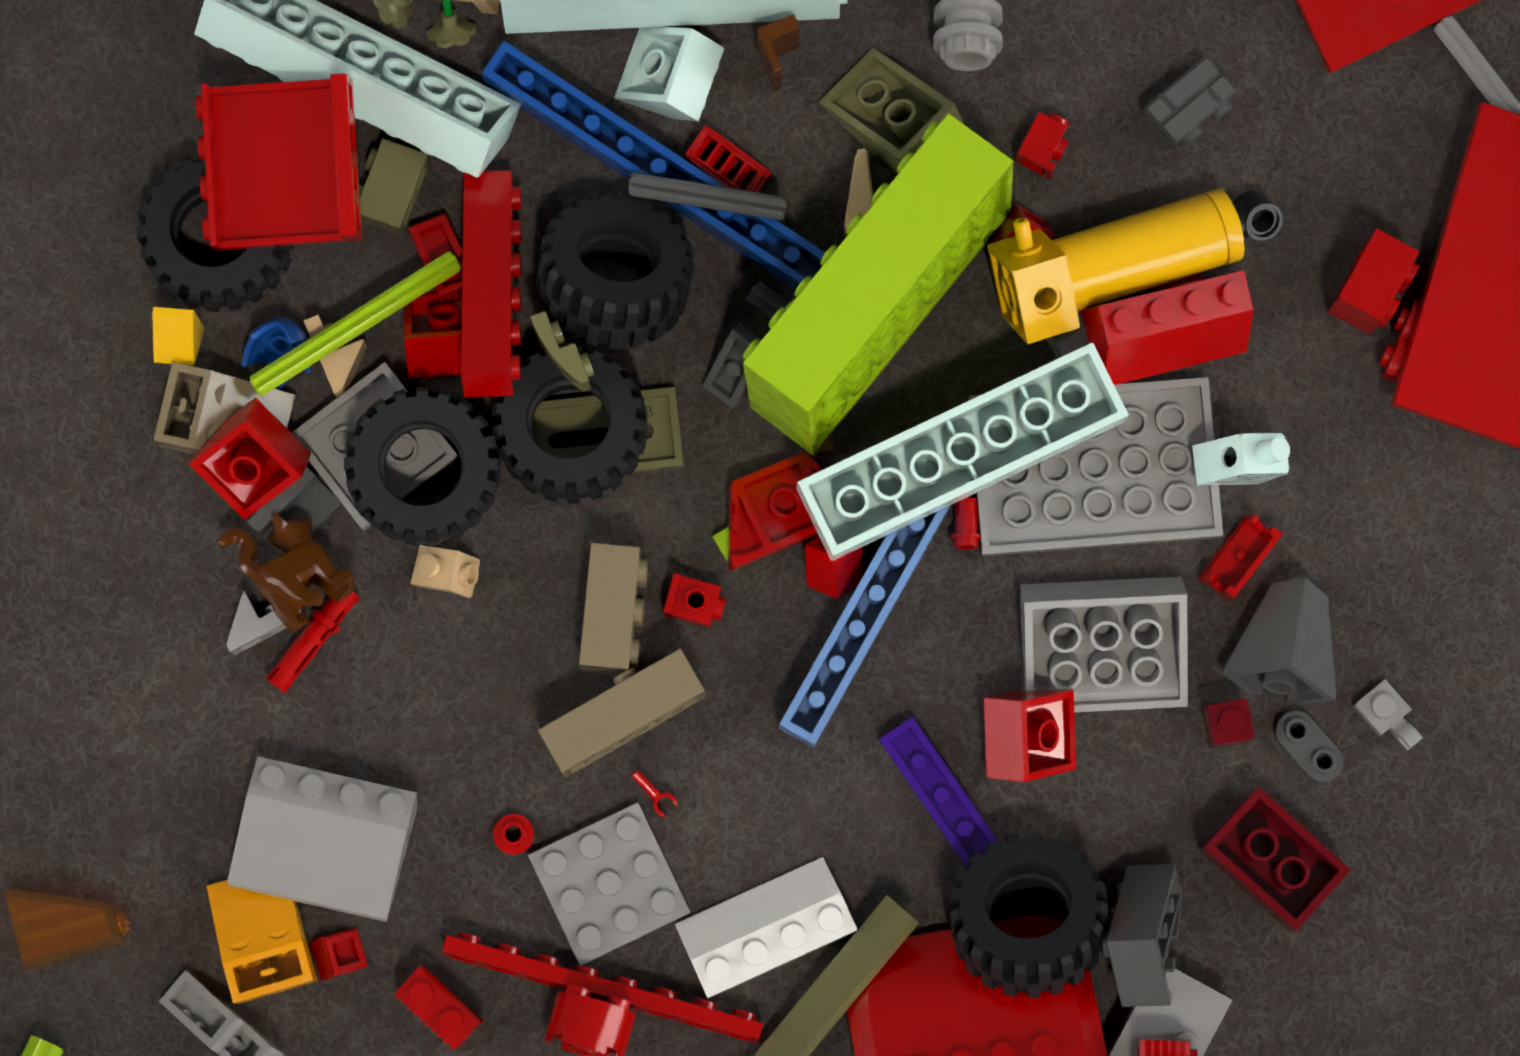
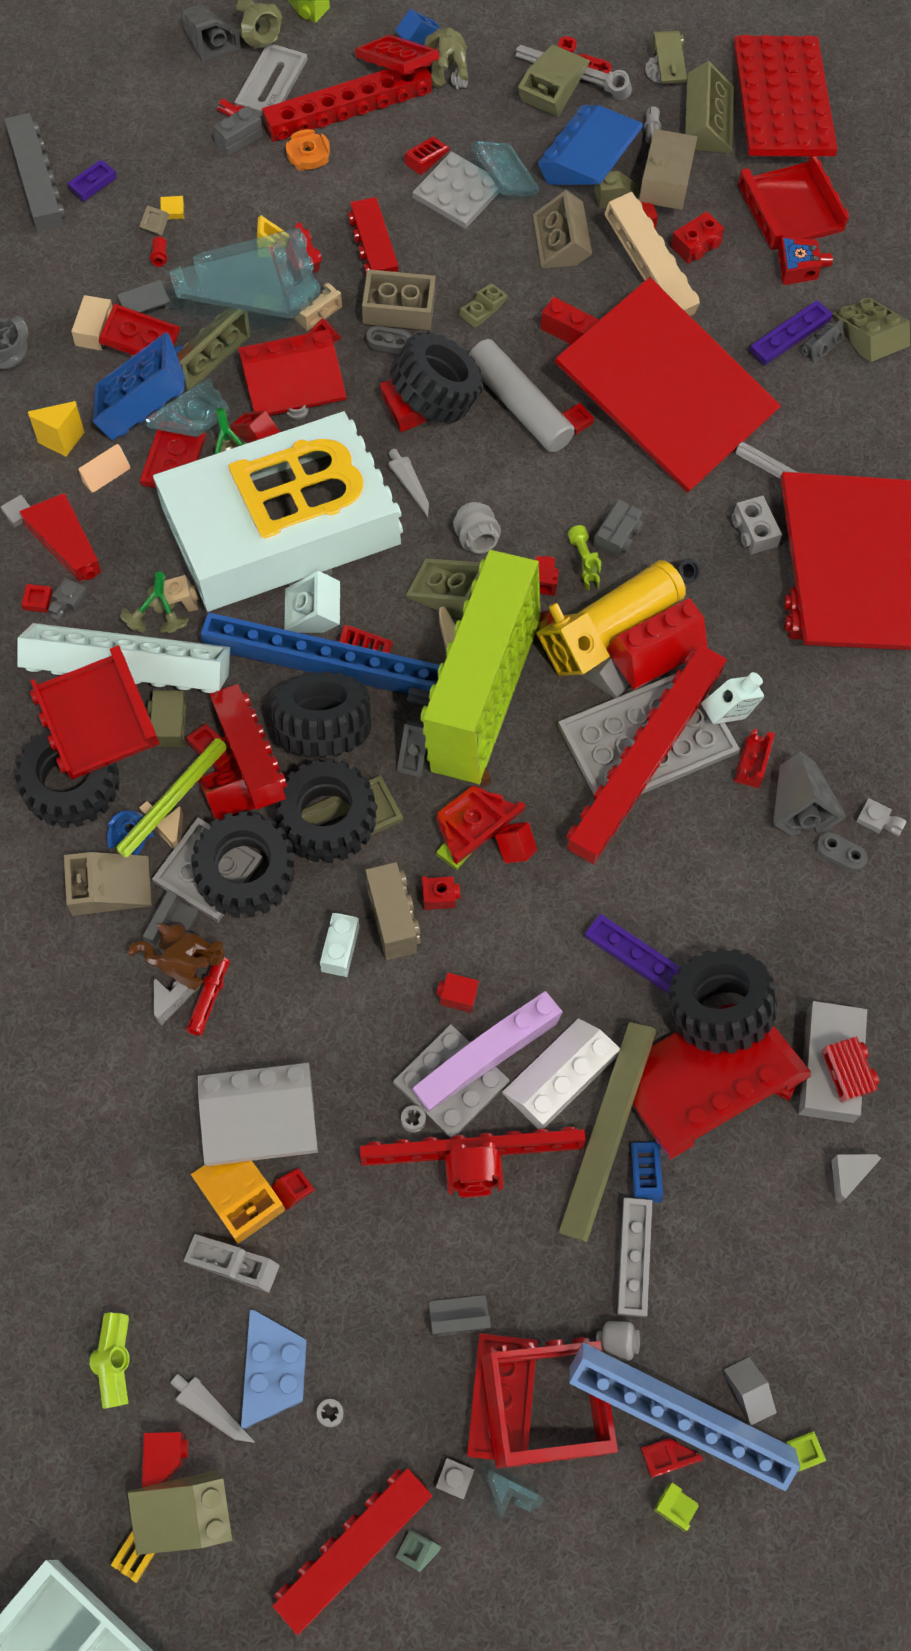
camera: 20 degrees left, 15 degrees down
(62, 927) = (103, 1234): clear orange slope -> none
(176, 335) = (60, 838): yellow slope -> none
(251, 459) = (132, 897): red slope -> none
(438, 1007) = (370, 1196): red brick -> none
(445, 570) = (278, 926): tan bracket -> none
(522, 630) = (339, 944): none -> light aqua brick
(525, 840) = (379, 1080): red plate -> none
(547, 924) = (421, 1120): none -> light grey bush
(568, 361) = (310, 765): olive slope -> none
(622, 712) = (421, 969): dark tan brick -> none
(652, 791) = (459, 1015): red hand -> none
(664, 760) = (458, 992): none -> red brick
(672, 865) = (488, 1050): none -> lavender slope
(707, 196) = (361, 655): dark grey axle -> none
(775, 41) = (370, 568): reddish brown panel -> none
(858, 629) = (549, 852): medium blue brick -> none
(961, 451) = (569, 743): light aqua brick -> none
(966, 524) = (584, 792): red pin -> none
(1029, 734) = (674, 898): red slope -> none
(1079, 496) = (645, 755): none -> red brick
(1108, 642) = (697, 834): light grey slope -> none
(1117, 155) = (590, 562): none -> lime bar
(1141, 933) = (798, 988): dark grey wedge -> none
(1228, 723) = (790, 852): dark red brick -> none
(1274, 860) = (853, 920): dark red brick -> none
(1373, 281) = (765, 584): red brick -> none
(1419, 172) = (760, 523): none -> light grey brick

